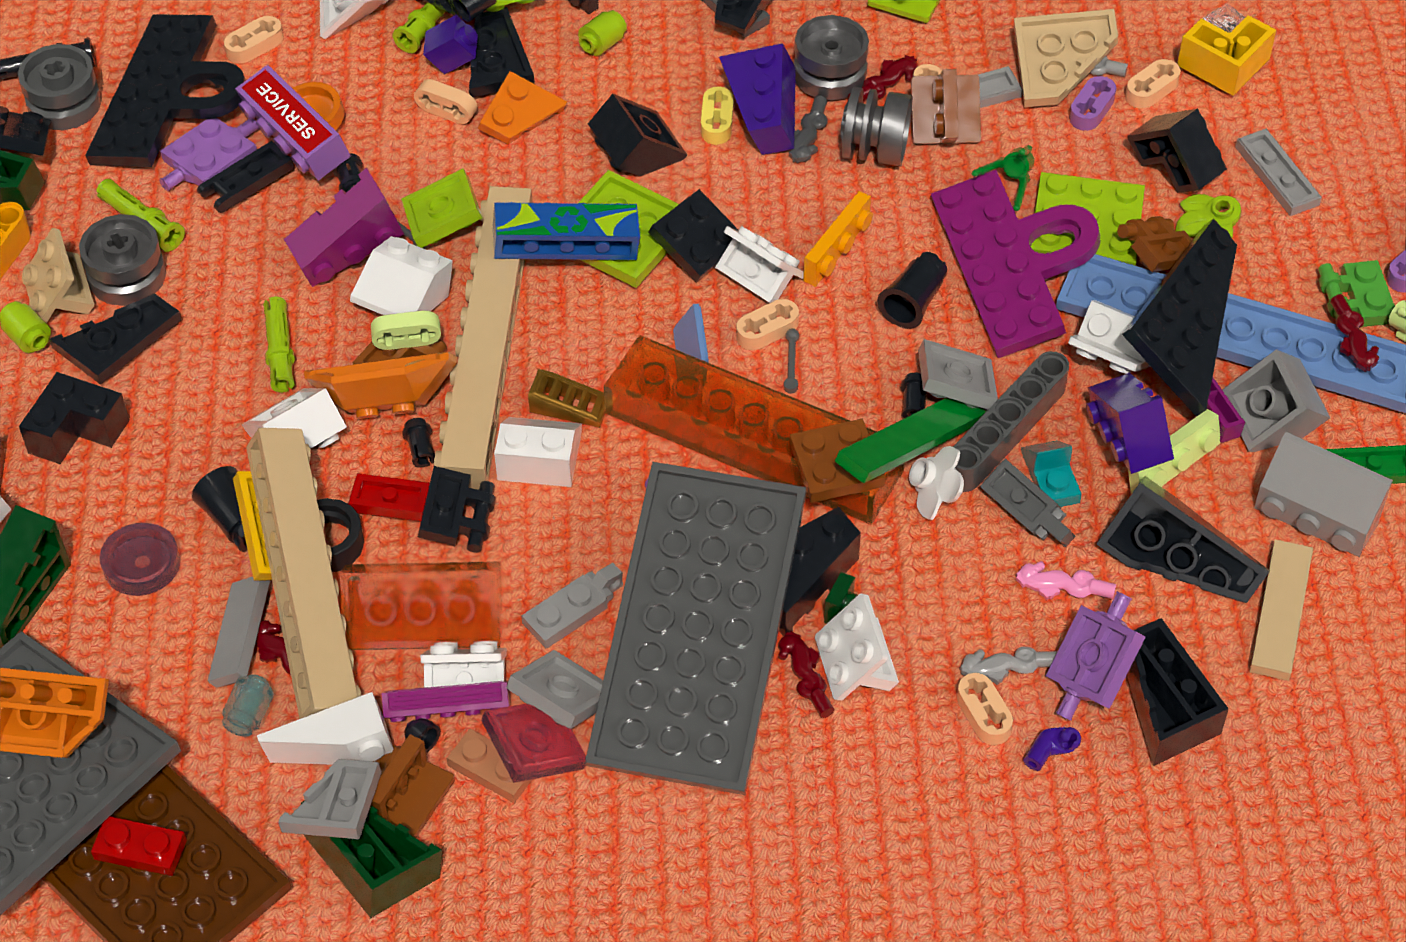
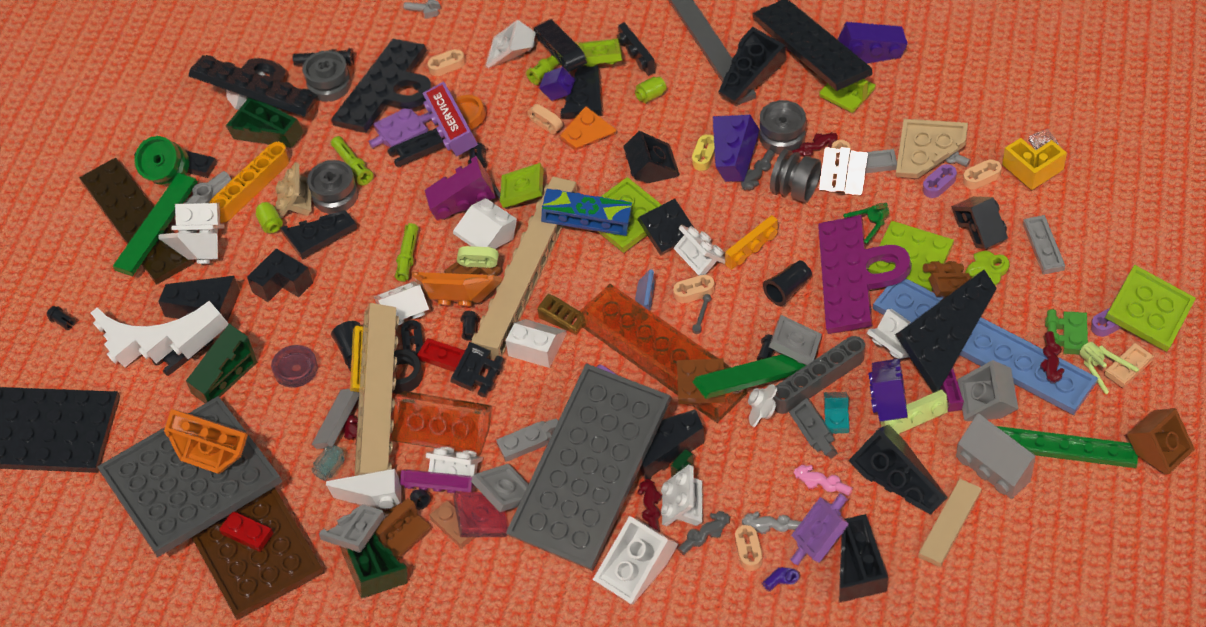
camera: 20 degrees right, 0 degrees up
(337, 479) = (408, 340): none -> black beam
(811, 763) = (634, 560): none -> white slope
(918, 689) = (712, 528): none -> dark grey animal

